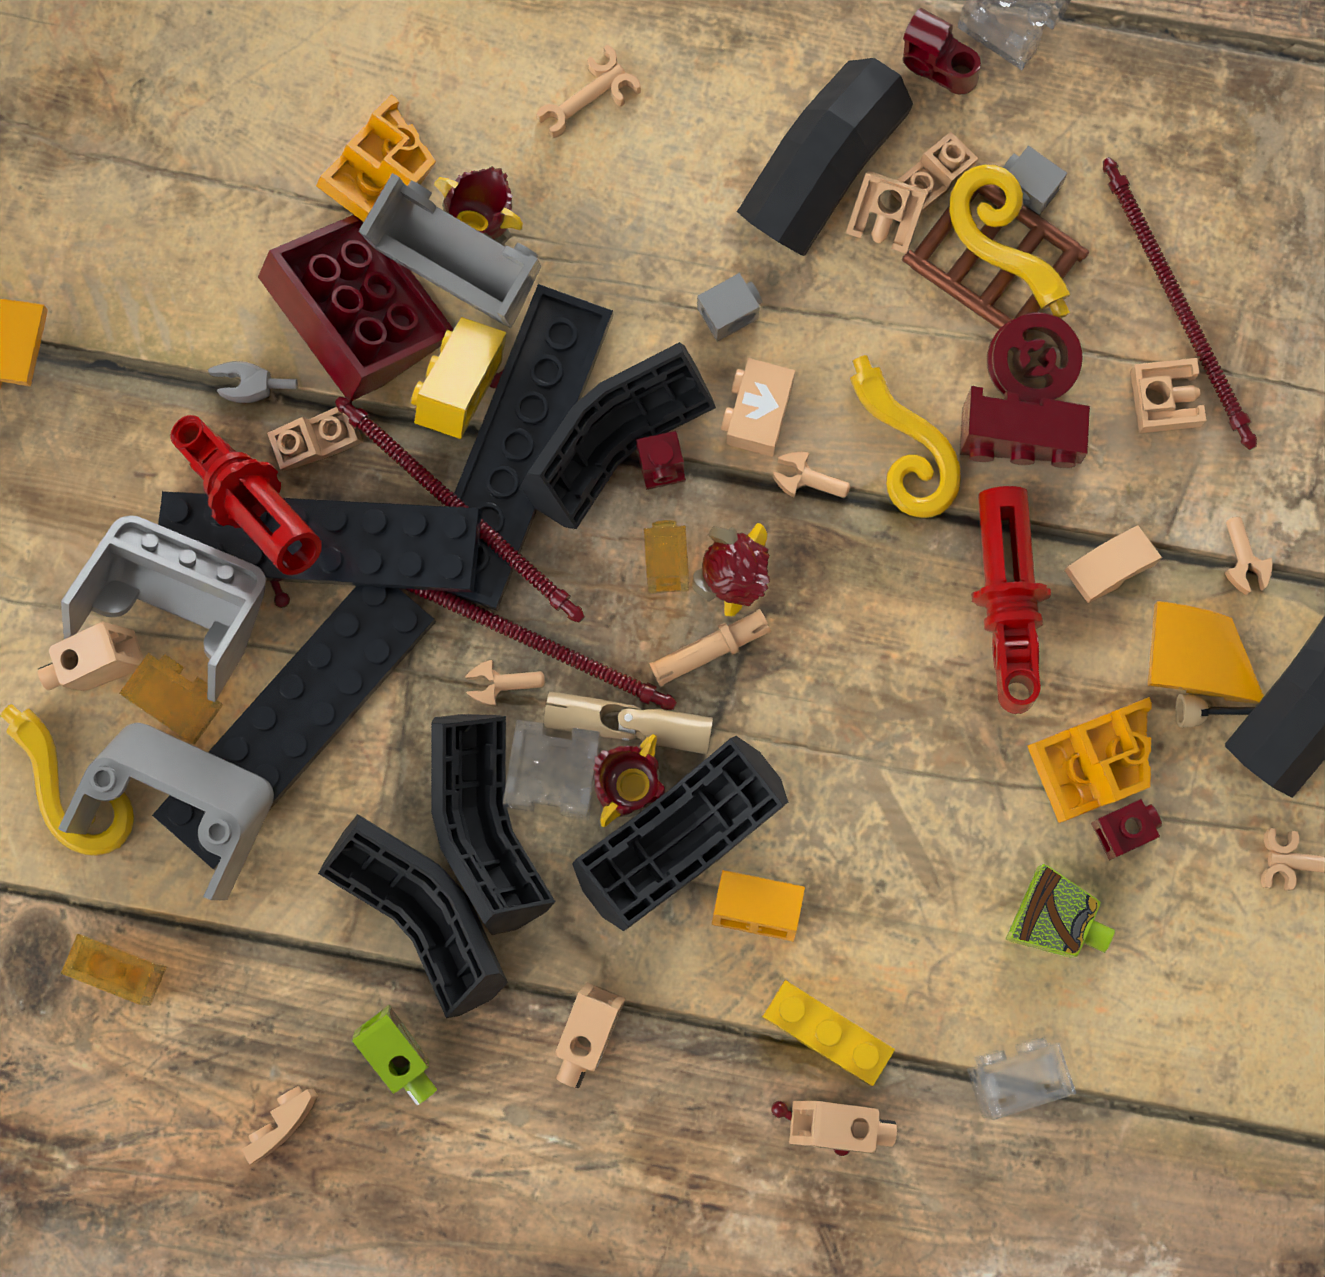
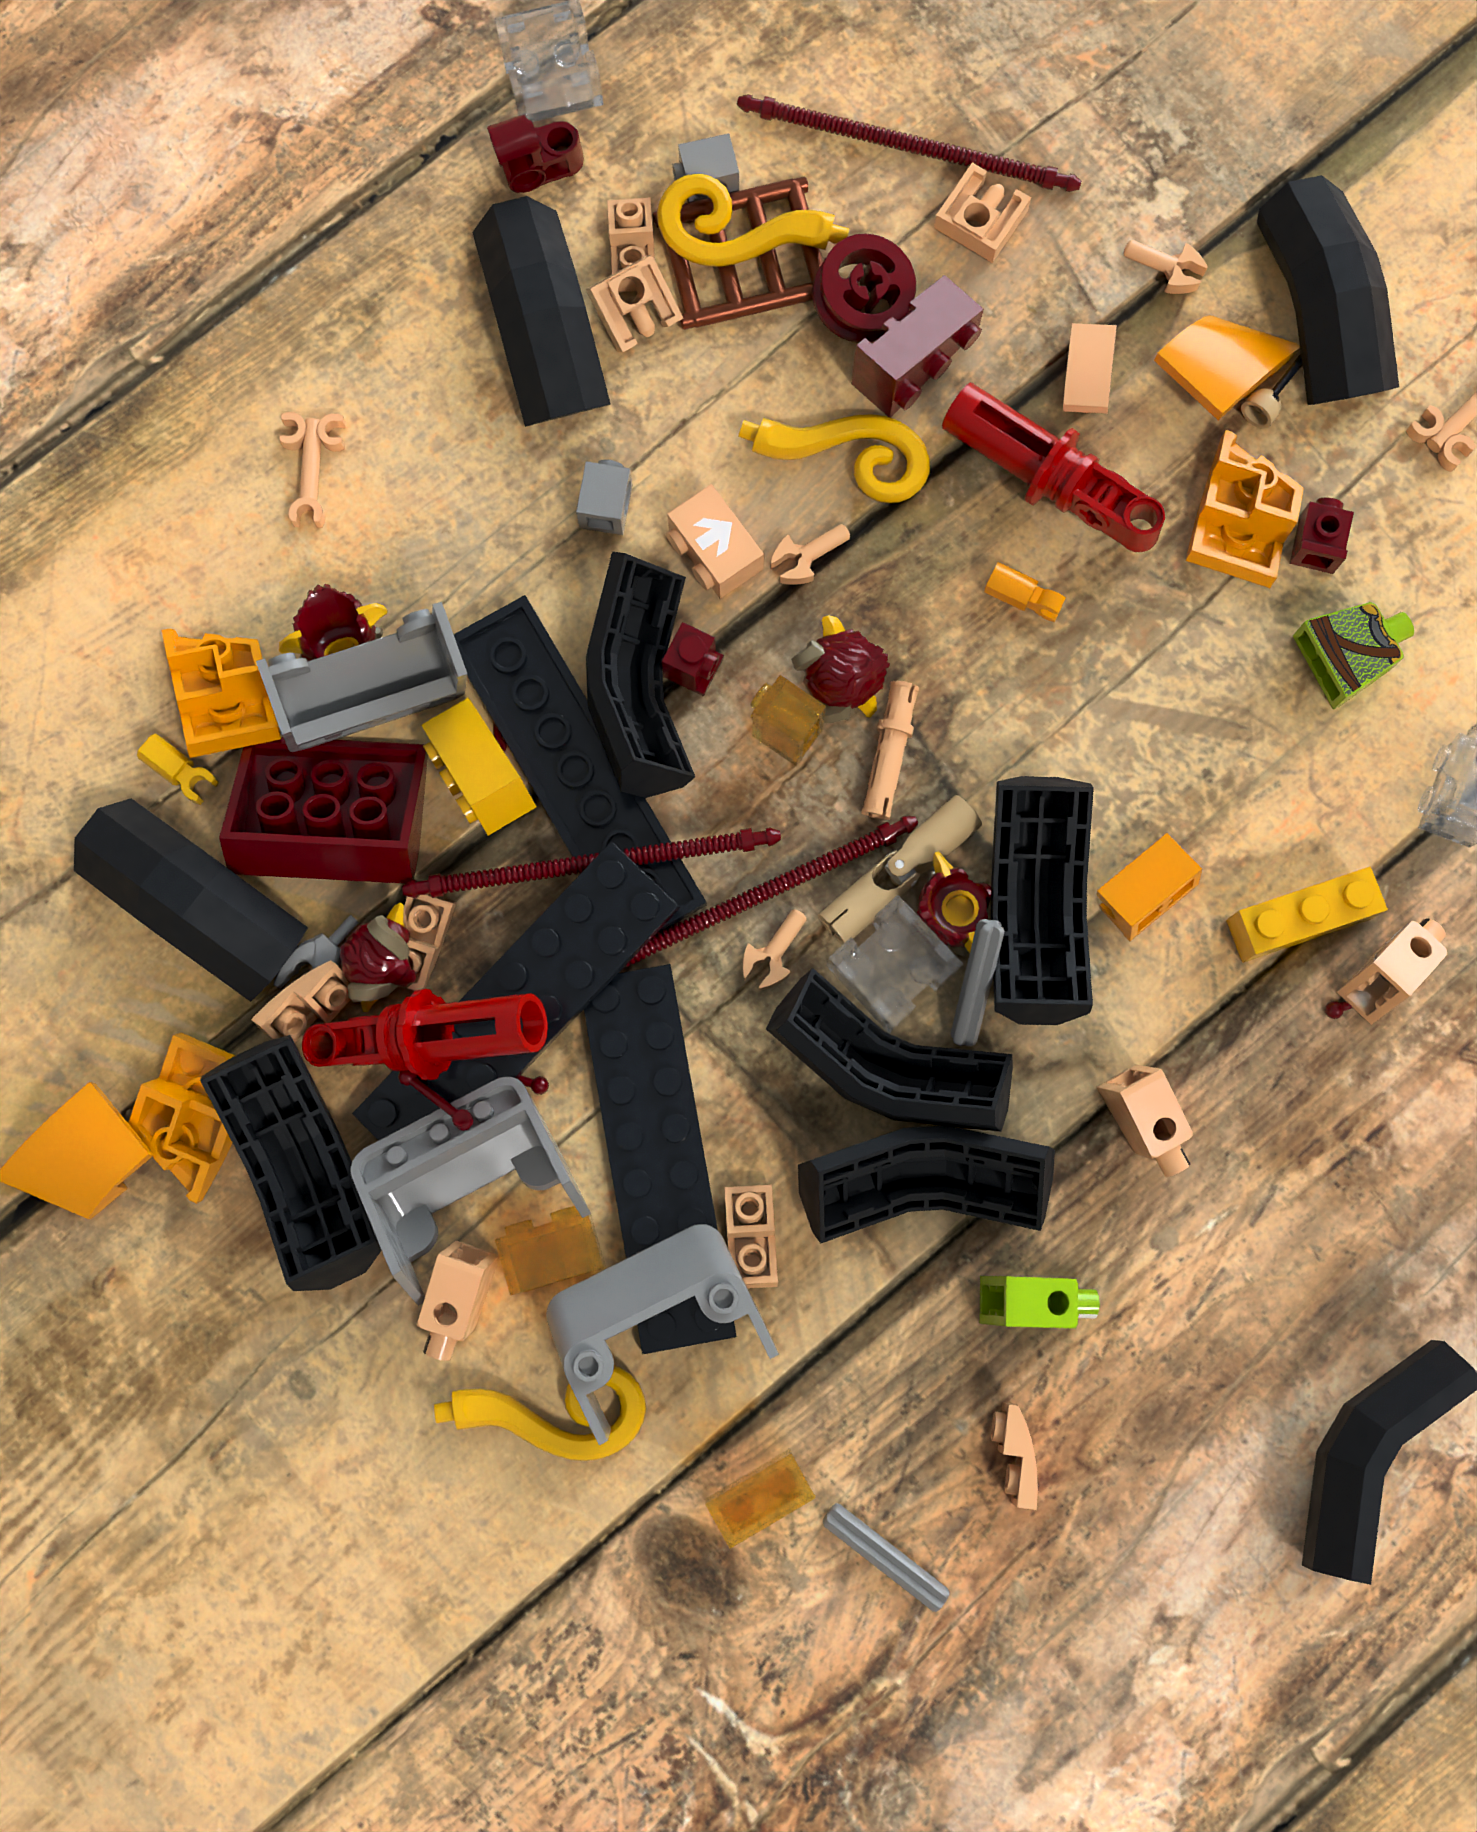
camera: 55 degrees left, 0 degrees up
(83, 388) = (179, 1118): none -> light orange slope
(96, 479) = (294, 1165): none -> black piece
(143, 1089) = (886, 1557): none -> light grey axle
(204, 396) = (312, 996): none -> light nougat slope
(207, 563) = (461, 1118): none -> dark red hinge
(219, 262) = (186, 896): none -> black piece
(276, 420) = (377, 958): none -> dark red hair
(292, 824) = (752, 1234): none -> light nougat slope
(304, 181) = (174, 766): none -> yellow bar
(584, 836) = (977, 982): none -> light grey axle
(904, 648) = (1023, 592): none -> light orange bar

